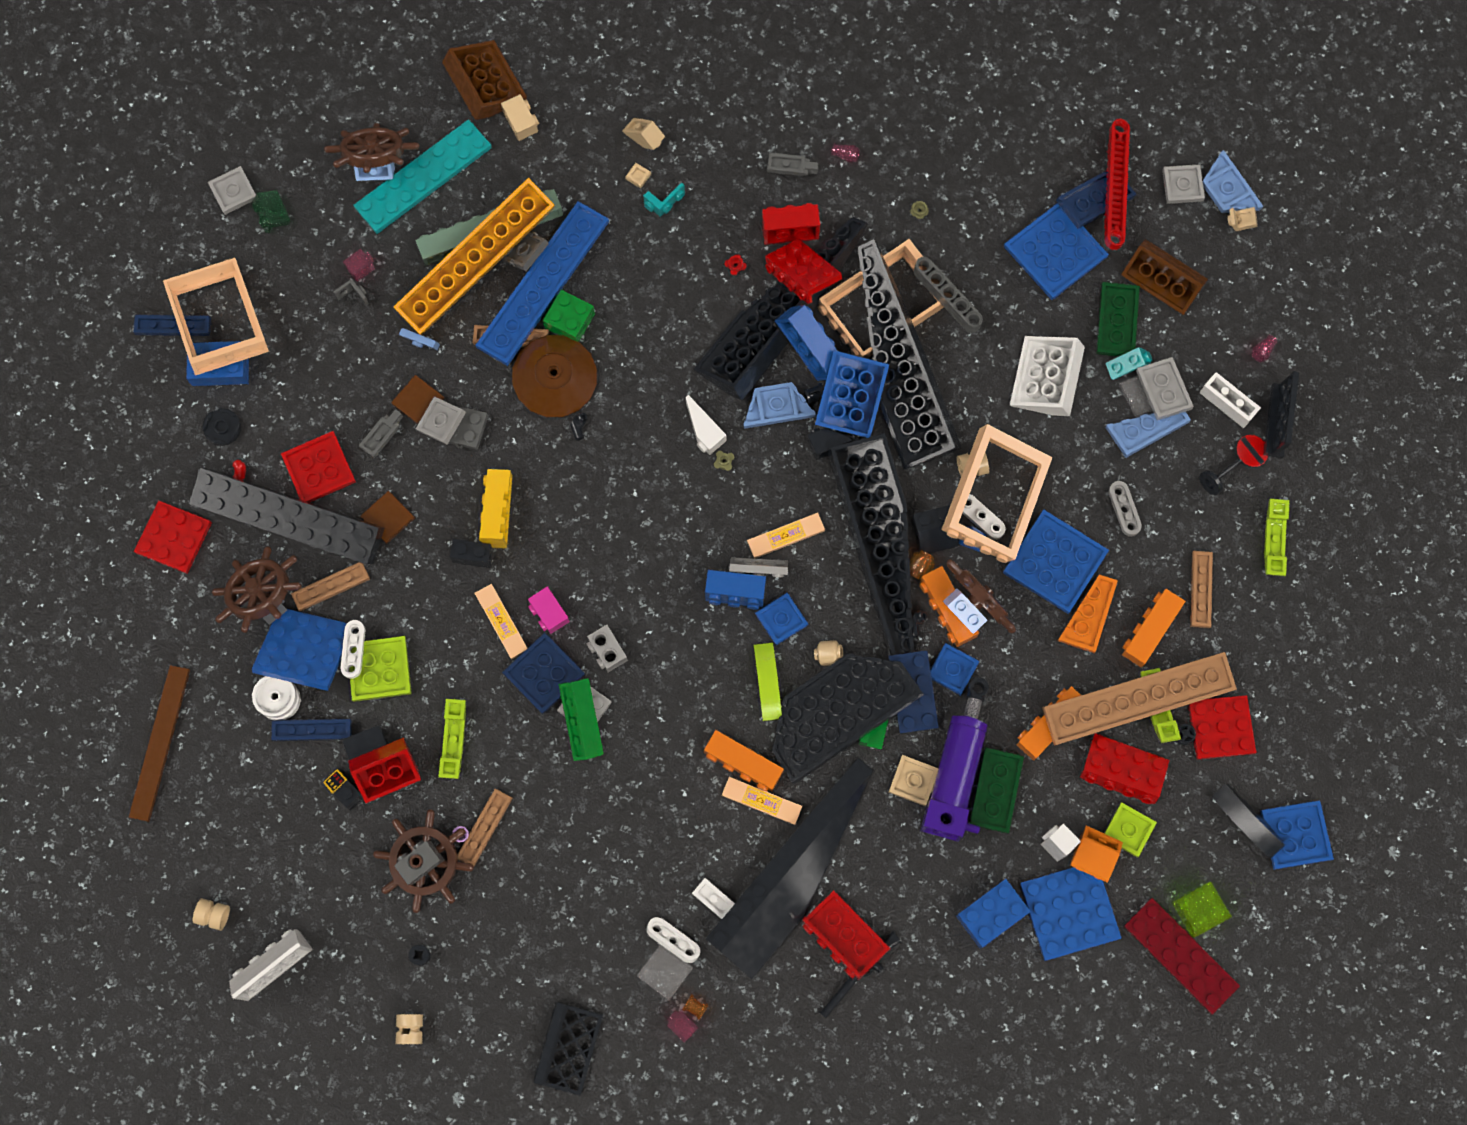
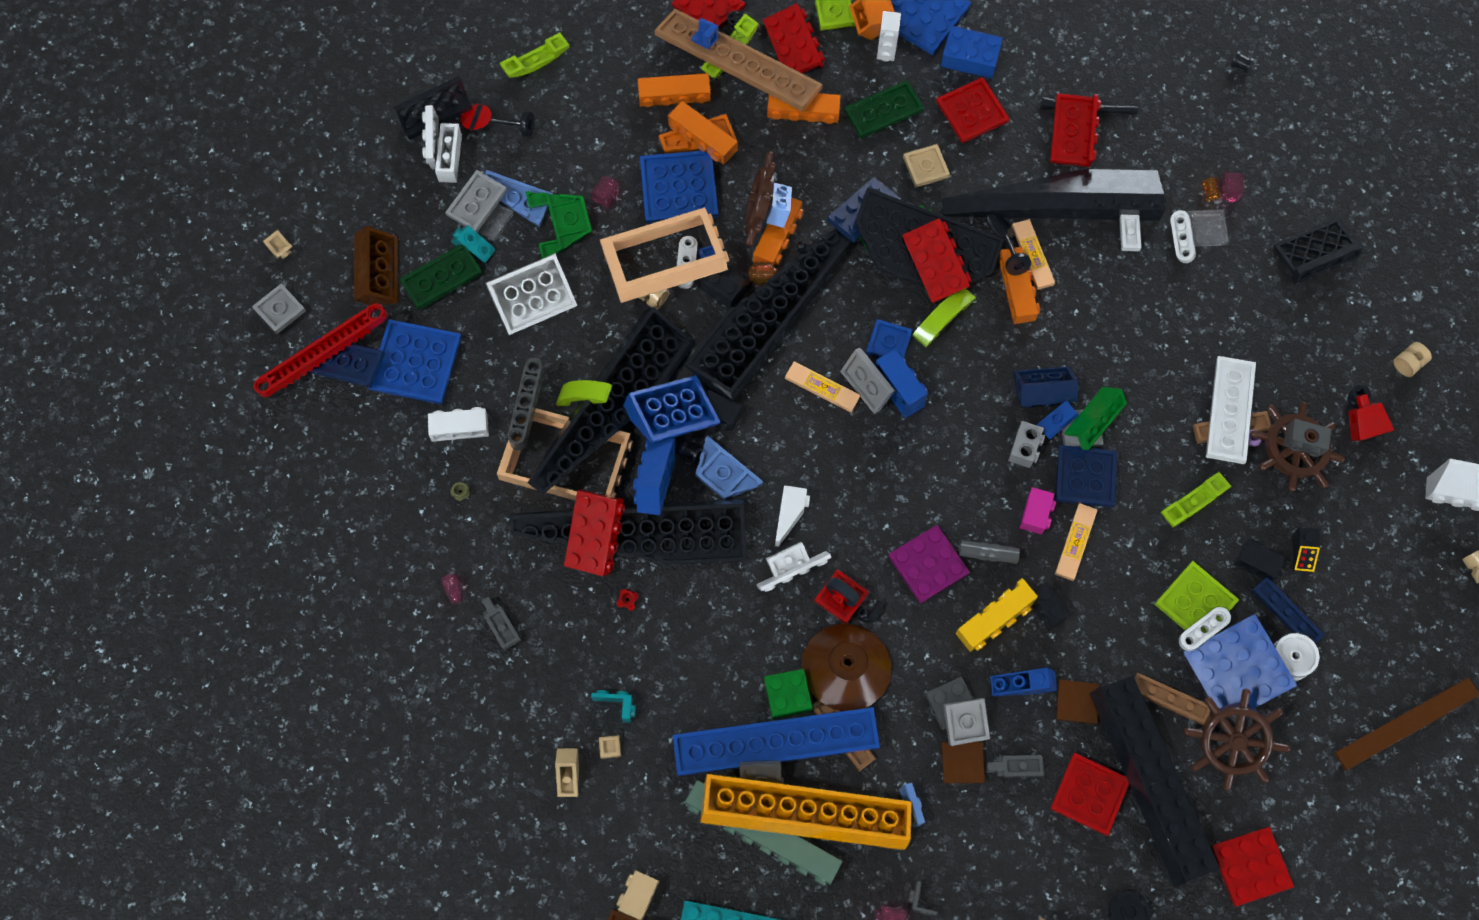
camera: 130 degrees left, 5 degrees down
(239, 469) = (1151, 858): red arm -> none
(384, 770) = (1267, 525): red brick -> none
(393, 938) = (1368, 419): none -> red torso
(432, 490) = (1024, 682): none -> blue slope
(496, 834) = (1231, 410): none -> white plate
(549, 547) = (989, 552): none -> dark grey axle
(579, 498) = (928, 564): none -> magenta plate
(604, 689) = (1058, 419): none -> blue plate
(608, 413) = (841, 596): none -> red plate
(641, 706) = (1046, 386): none -> dark blue slope
(662, 396) = (790, 563): none -> white bracket
(723, 465) = (797, 475): olive plate -> none
(790, 223) = (558, 576): red brick -> none
(804, 790) = (1018, 262): none -> black piece
(814, 705) = (937, 260): none -> red bracket
(828, 652) = (886, 286): tan head -> none
(920, 337) = (583, 390): none -> lime slope
(935, 866) = (972, 110): none -> red plate
(953, 669) = (820, 199): blue tile -> none
(957, 771) = (931, 125): dark purple piece -> none
(975, 244) = (458, 424): none -> white brick
(1088, 612) = (702, 133): none -> orange brick
(1095, 451) = (568, 219): none -> green wing
(1096, 499) = (605, 191): none -> clear pink brick
(1125, 500) = (597, 162): light grey plate -> none
(1183, 686) = (706, 35): none -> blue panel
(1201, 589) = (615, 81): medium nougat tile -> none
(1228, 187) = (255, 275): medium blue wing -> none
(1263, 350) = (384, 160): clear pink cone -> none
(1265, 398) = (430, 135): none -> white plate

